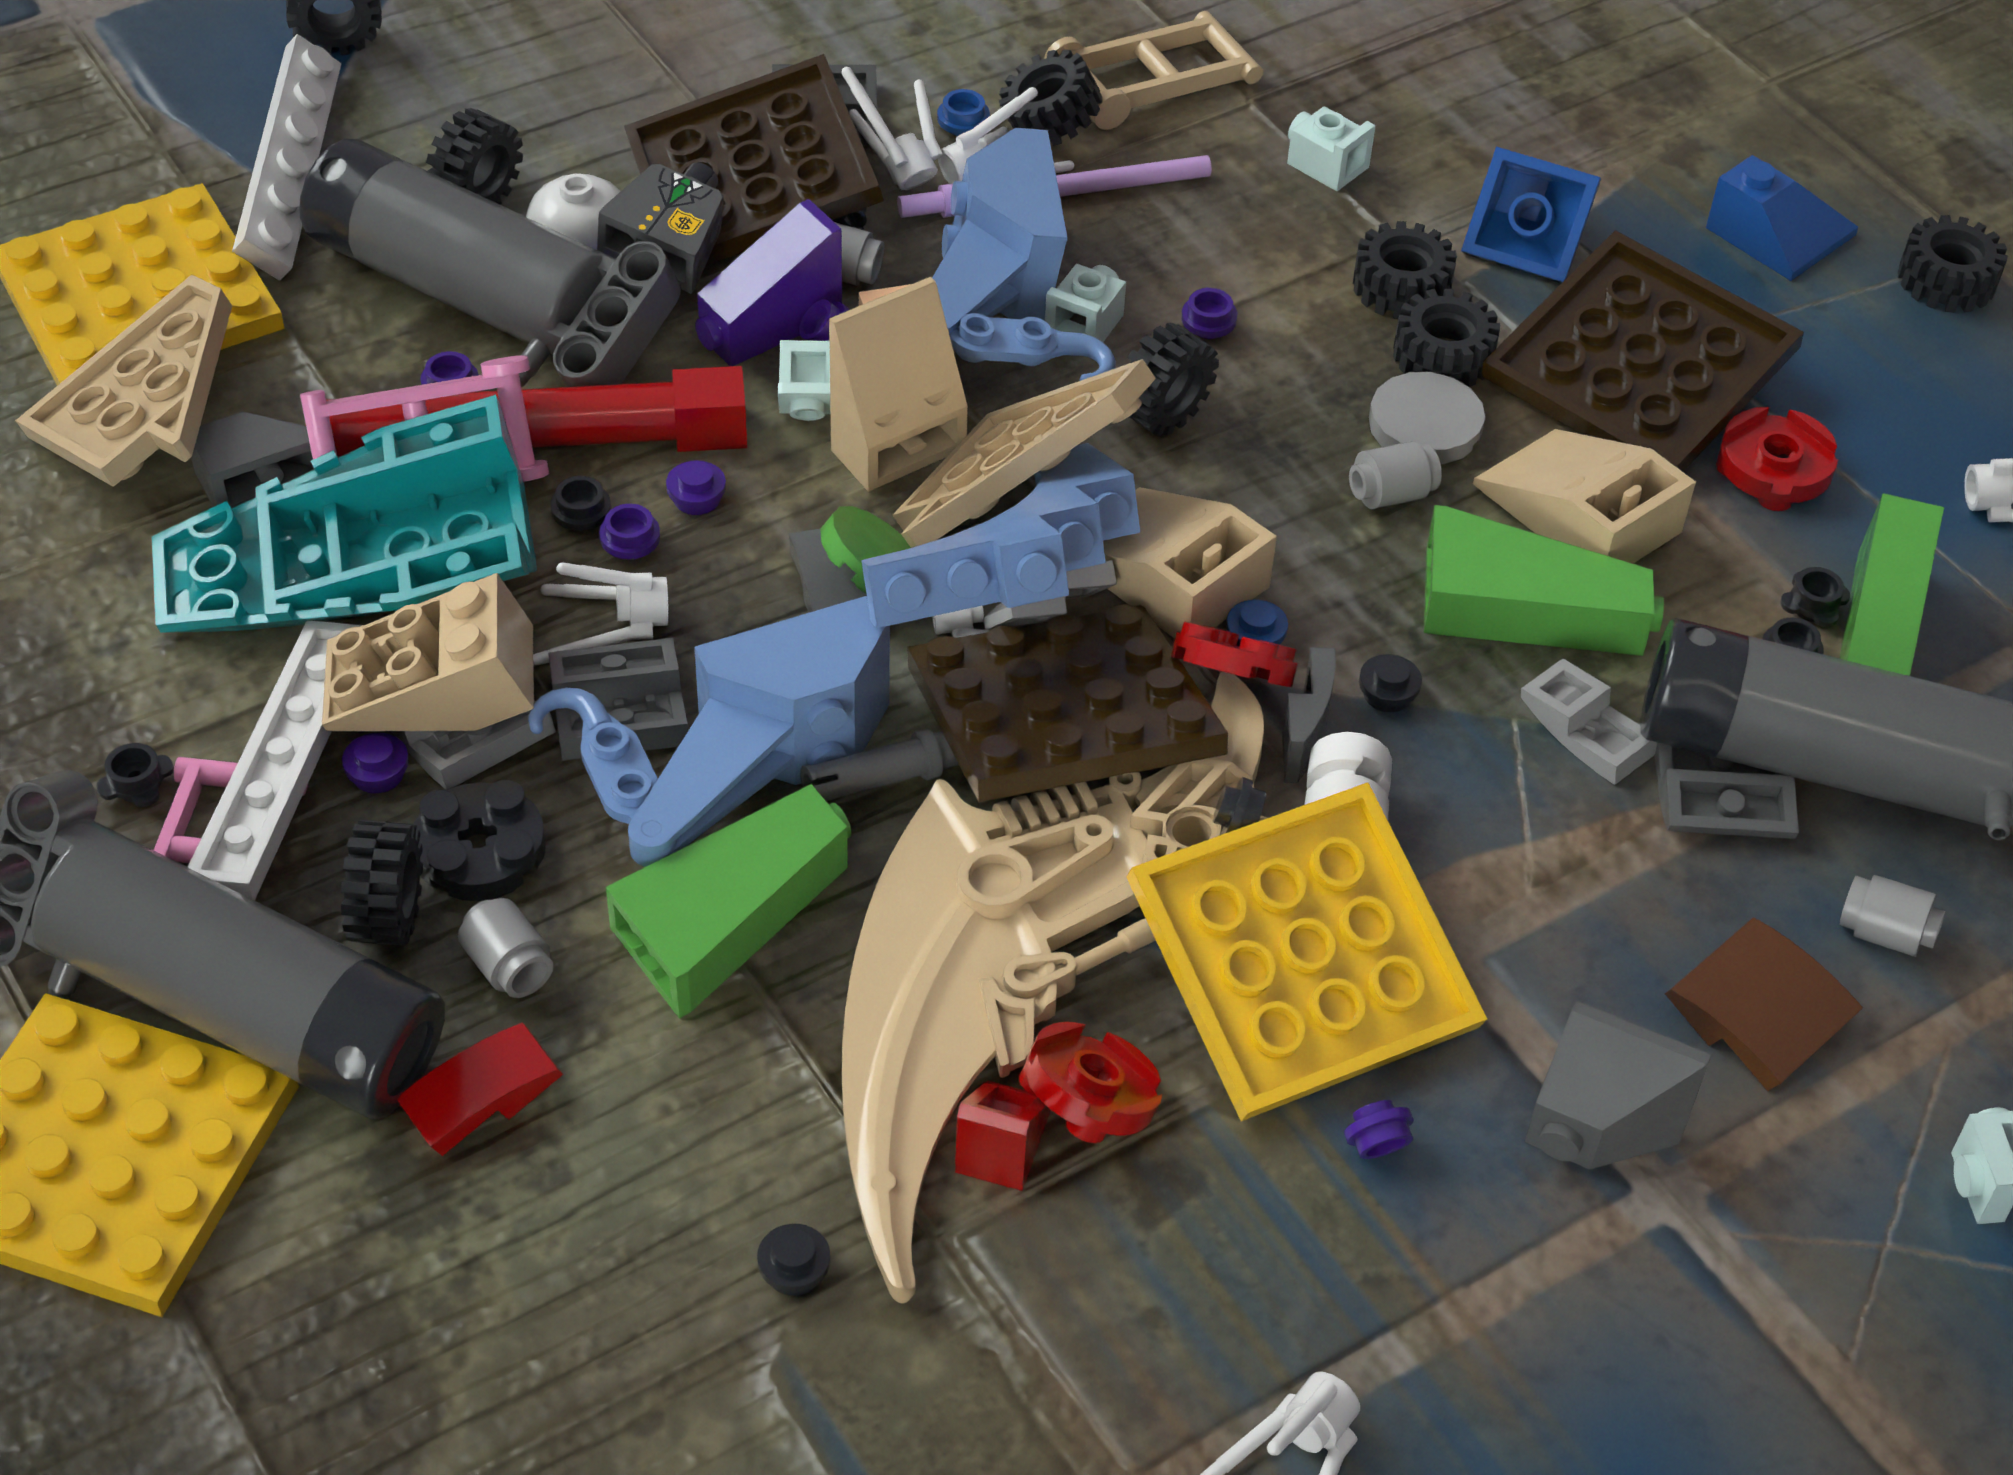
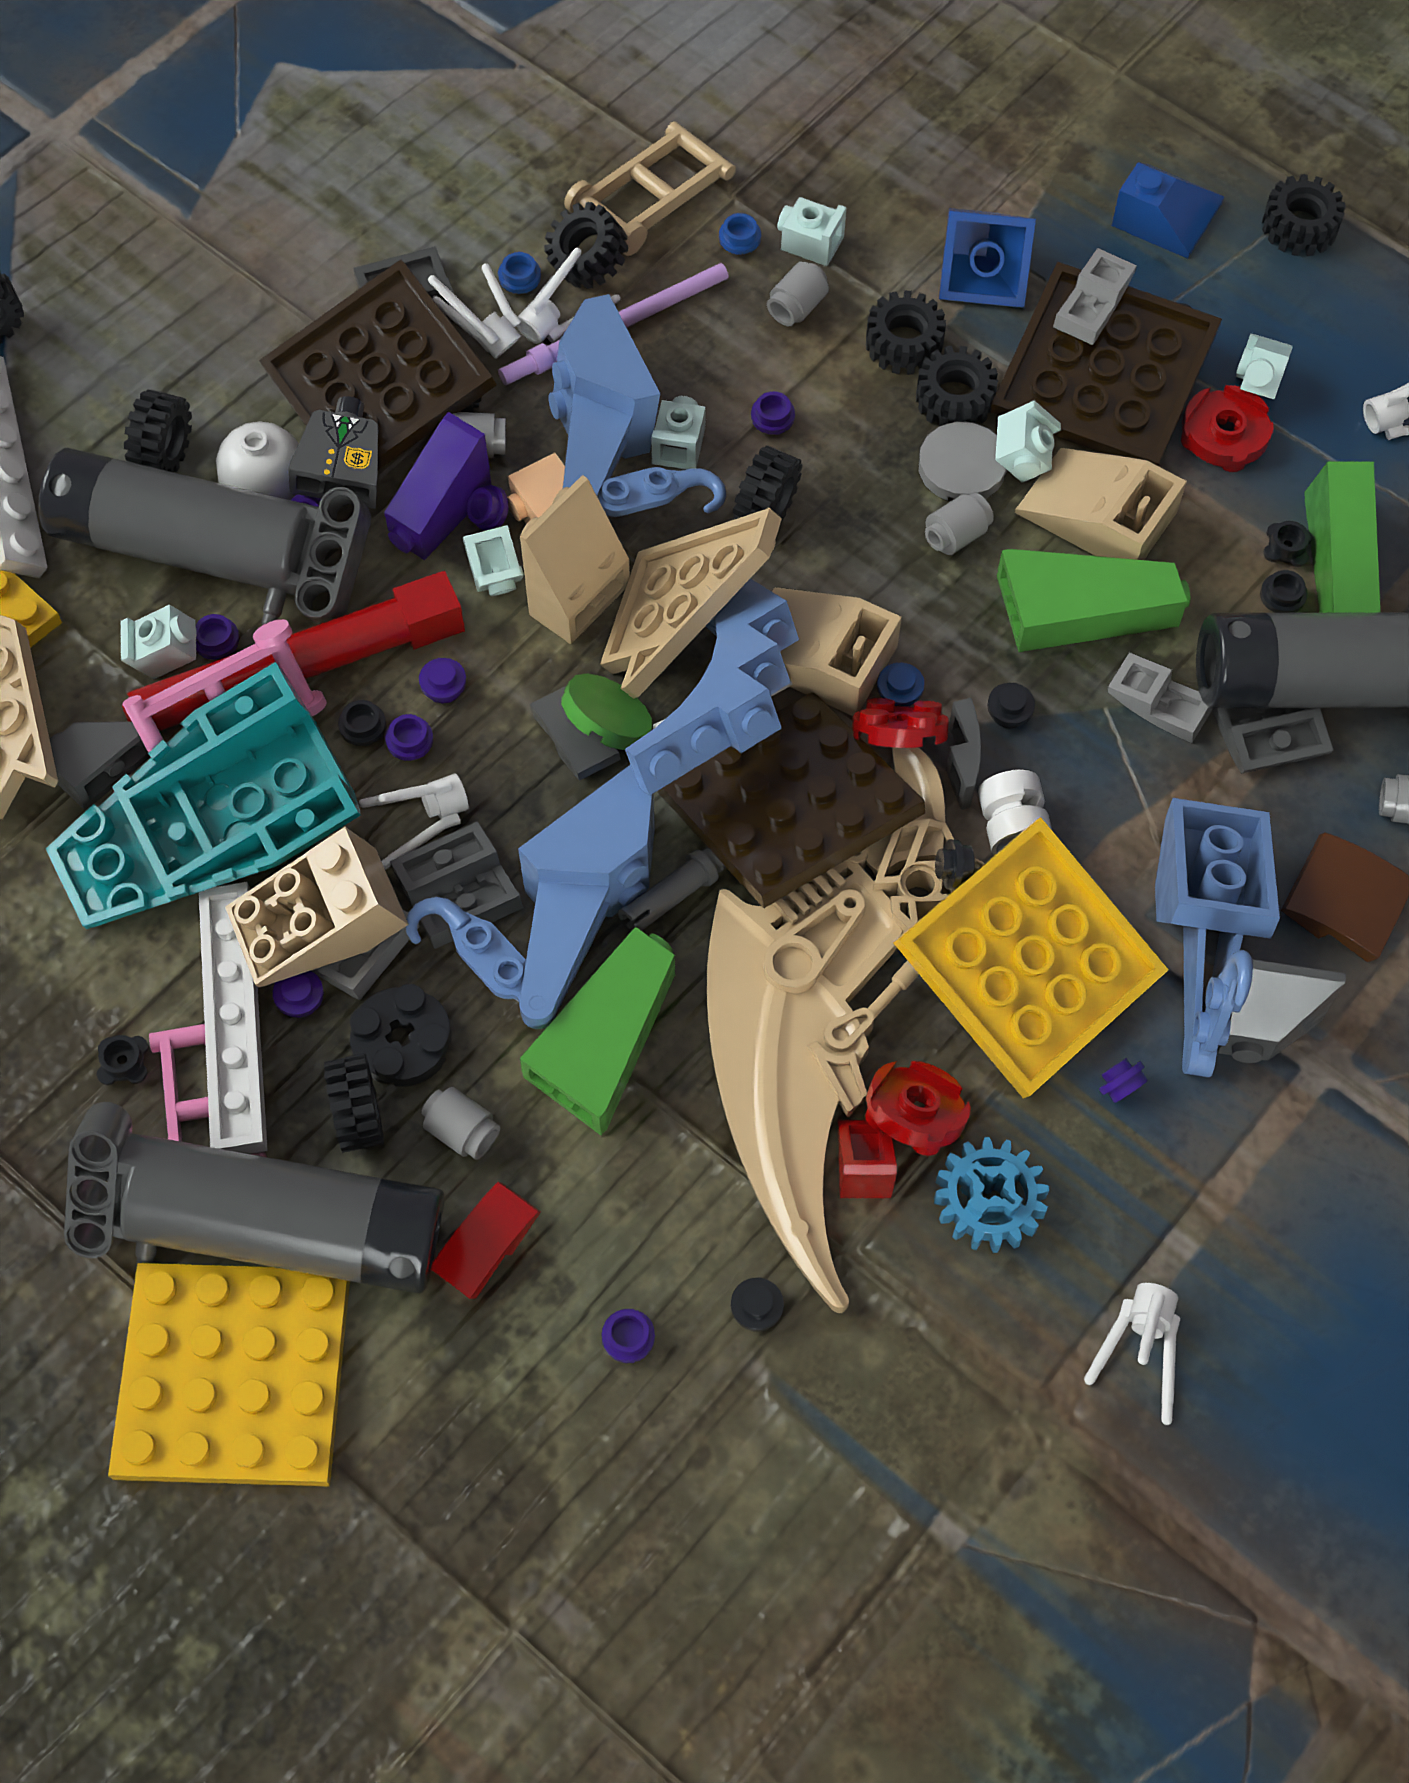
camera: 15 degrees left, 15 degrees up
(379, 358) = (158, 641): none -> light aqua brick
(612, 1246) = (628, 1335): none -> dark purple plate
(1151, 1213) = (1001, 1177): none -> dark azure gear
(1241, 133) = (740, 234): none -> blue plate
(1286, 202) = (797, 293): none -> light grey brick
(1511, 406) = (1026, 441): none -> light aqua brick
(1579, 932) = (1220, 878): none -> medium blue slope
(1650, 273) = (1095, 296): none -> light grey slope
(1845, 398) = (1263, 365): none -> light aqua brick

